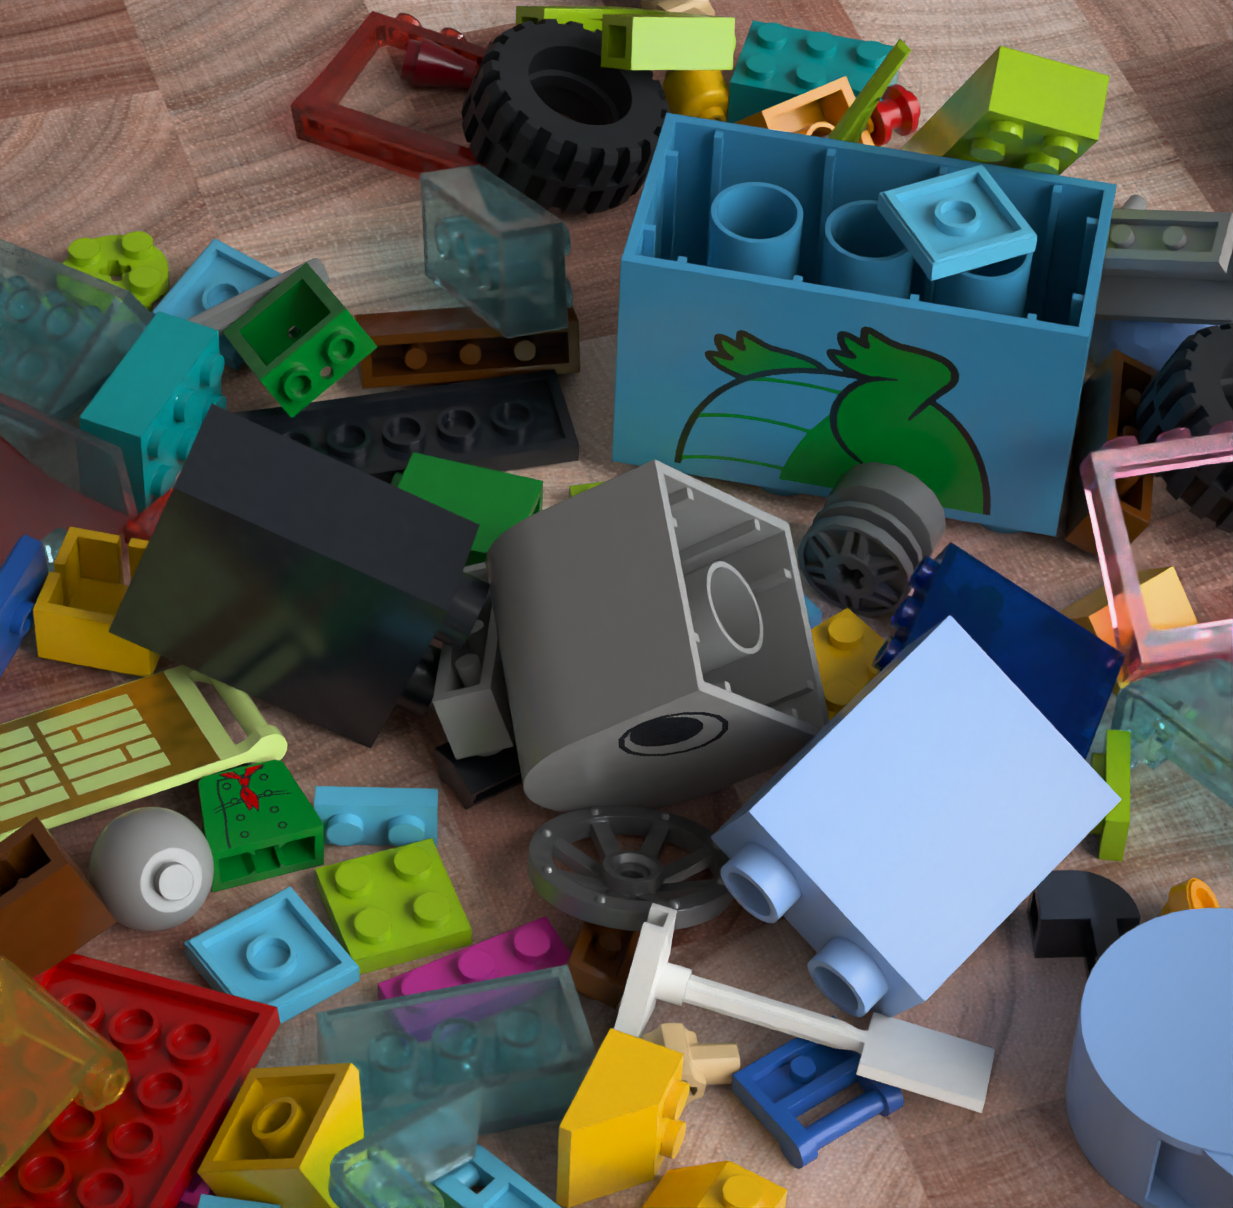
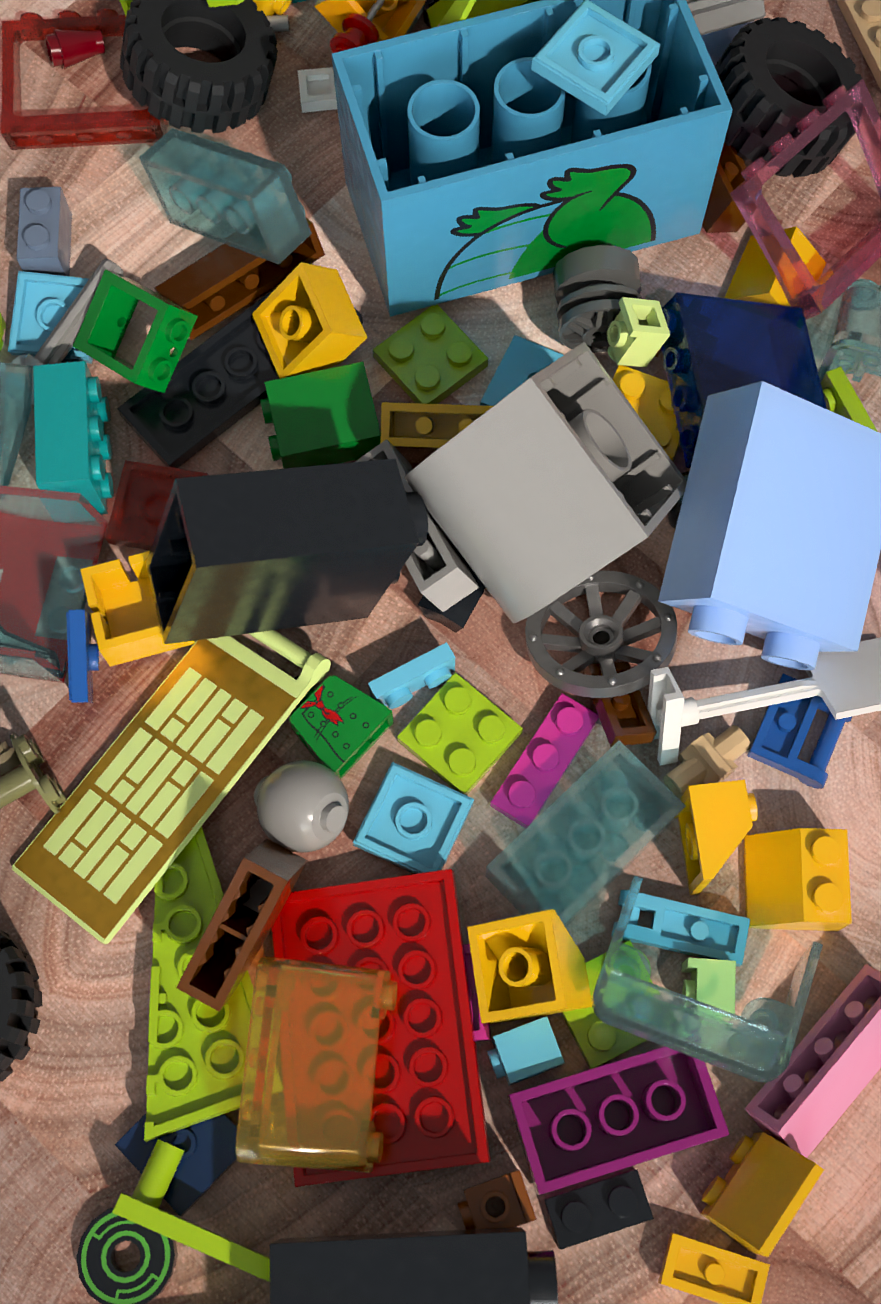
camera: 25 degrees left, 25 degrees up
(273, 215) = (44, 231): none -> sand blue brick
(509, 413) = (309, 321): none -> yellow slope
(881, 571) = (637, 332): none -> yellowish green brick

